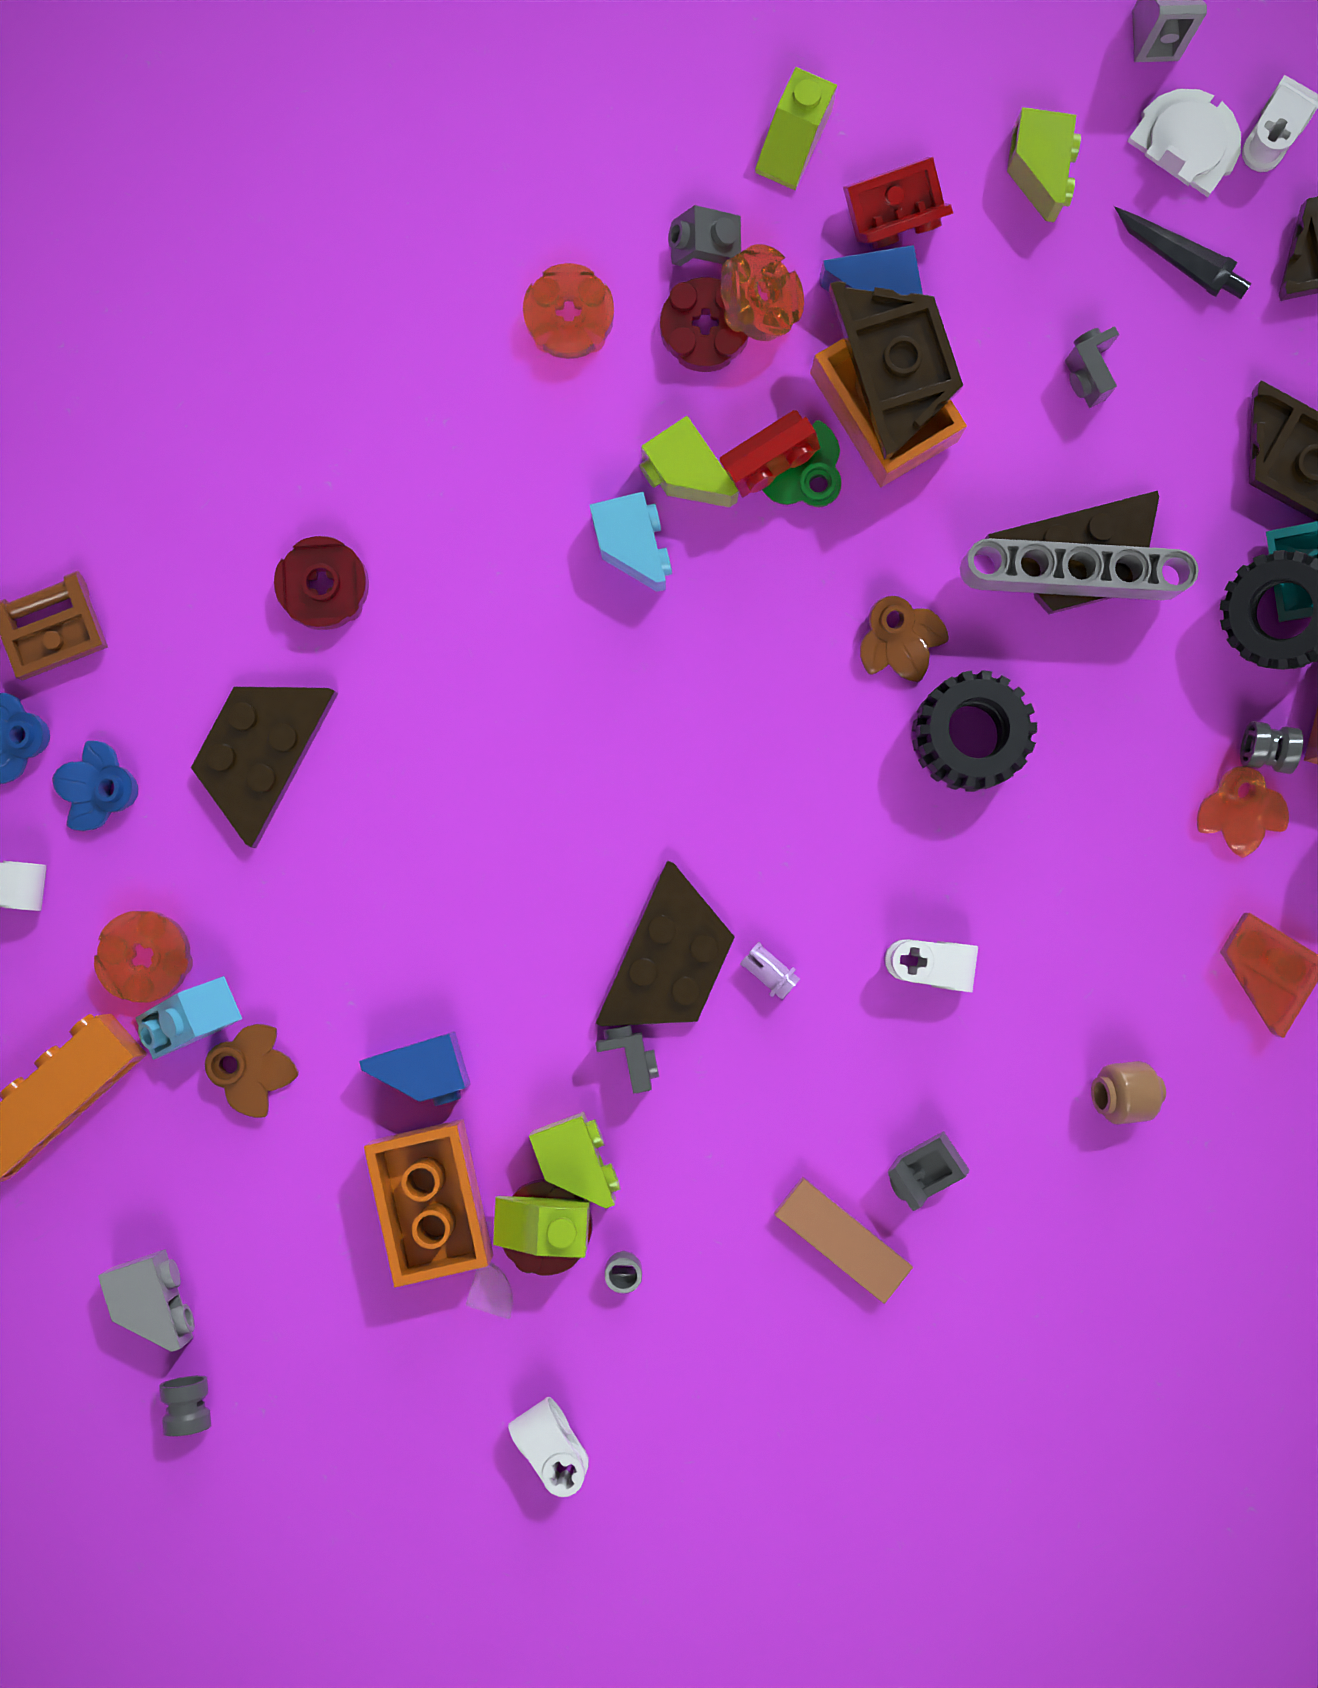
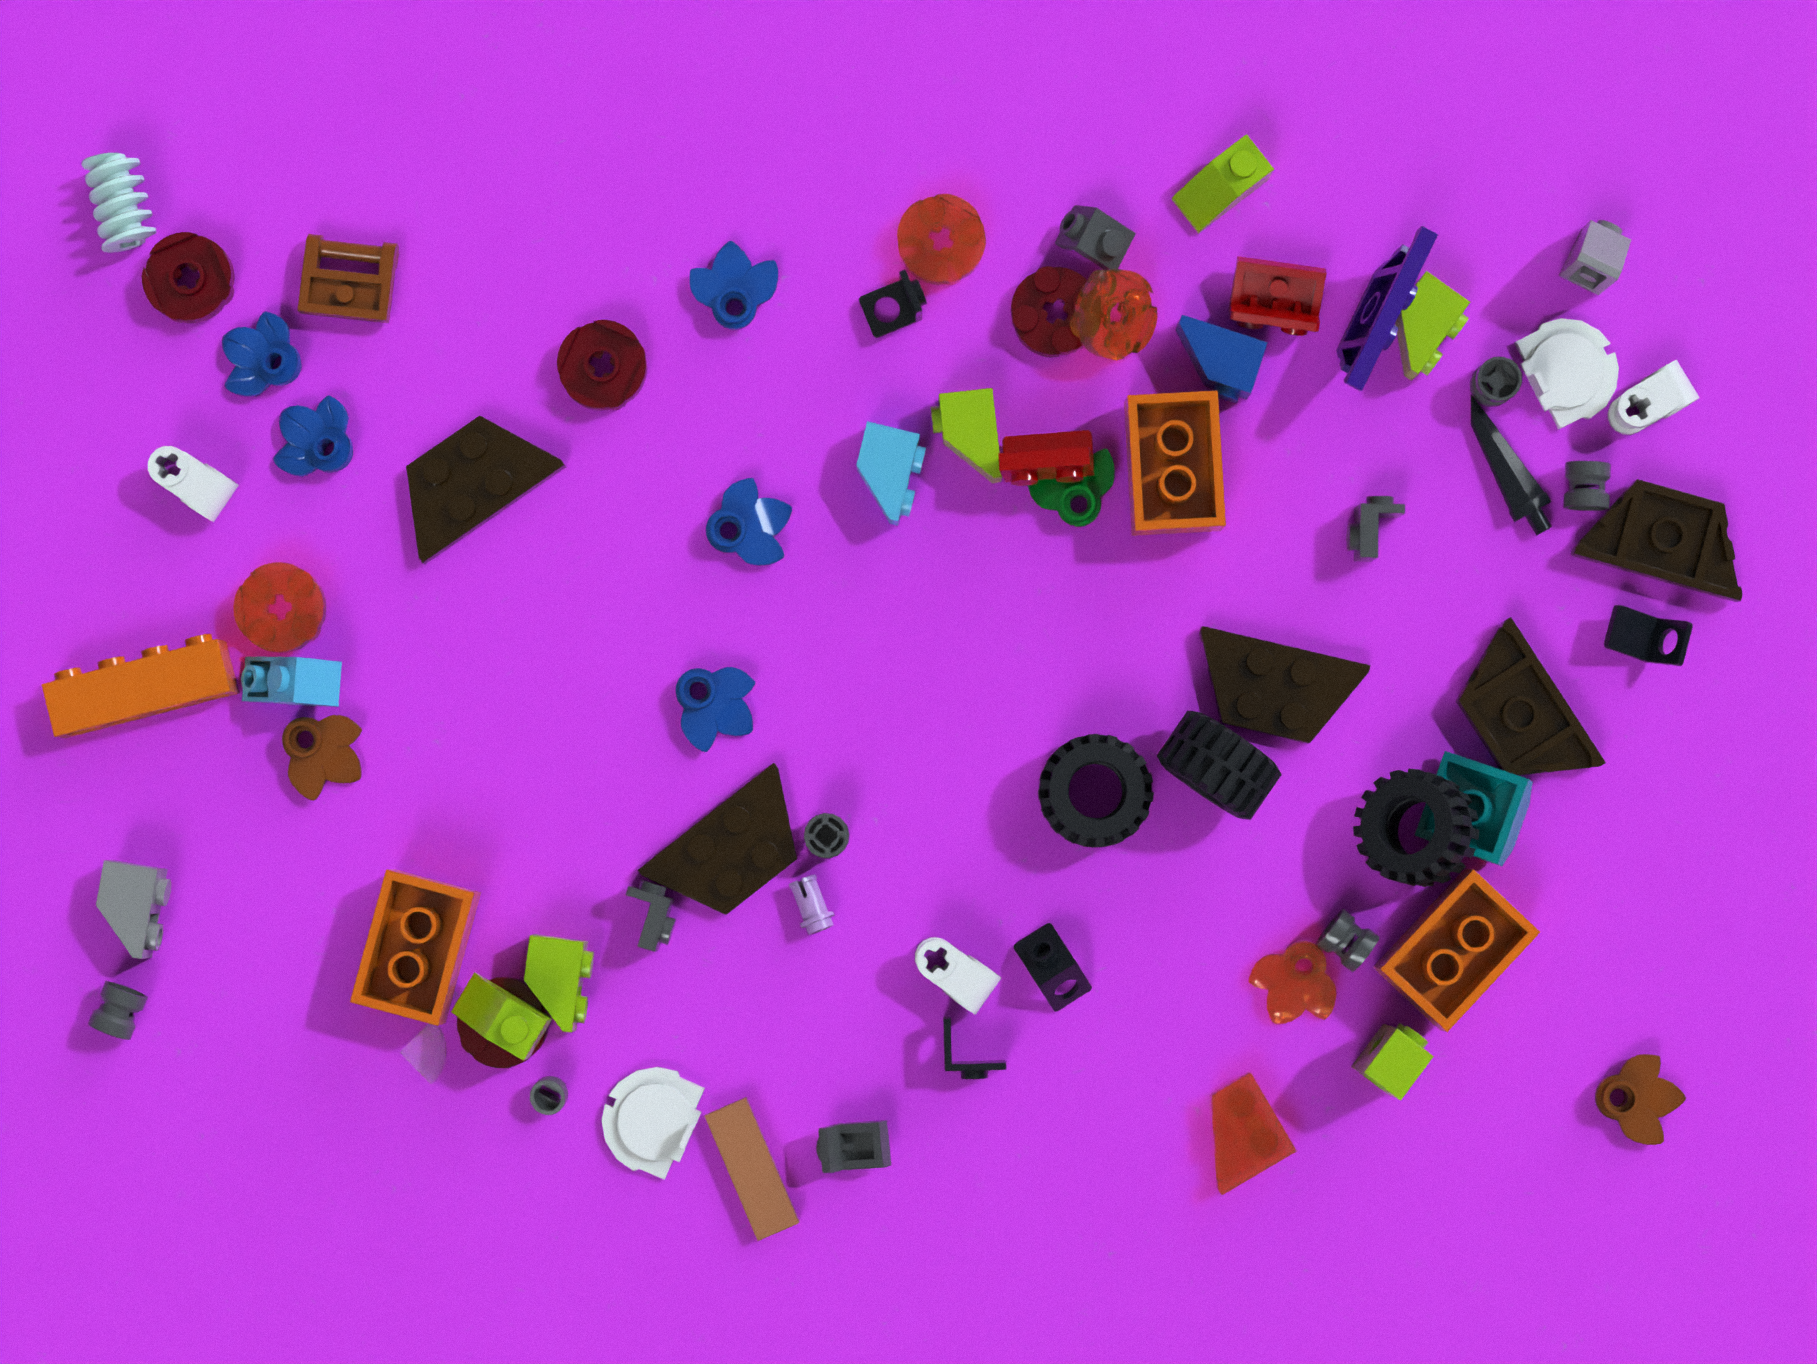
camera: 25 degrees right, 0 degrees up
(402, 446) = (734, 280): none -> blue plate
(423, 1069) = (469, 831): blue slope -> none
(536, 652) = (755, 521): none -> blue plate
(546, 1440) = (408, 1203): white piece -> none
(564, 376) = (908, 296): none -> black bracket
(592, 838) = (719, 710): none -> blue plate
(728, 1243) = (651, 1119): none -> white piece
(744, 901) = (830, 831): none -> dark grey wheel
(897, 358) = (1193, 438): dark brown wing -> none
(904, 645) = (1081, 683): dark orange plate -> none
(993, 1044) = (968, 1069): none -> black bracket
(999, 158) = (1384, 298): none -> dark purple wing
(1016, 910) = (1051, 965): none -> black bracket
(1077, 646) = (1219, 765): none -> black tyre
(1097, 559) = (1279, 699): beam -> none
(1128, 1092) = (1063, 1171): medium nougat head -> none
(1138, 168) = (1501, 375): none -> dark grey wheel
(1264, 228) = (1586, 476): none -> dark grey wheel

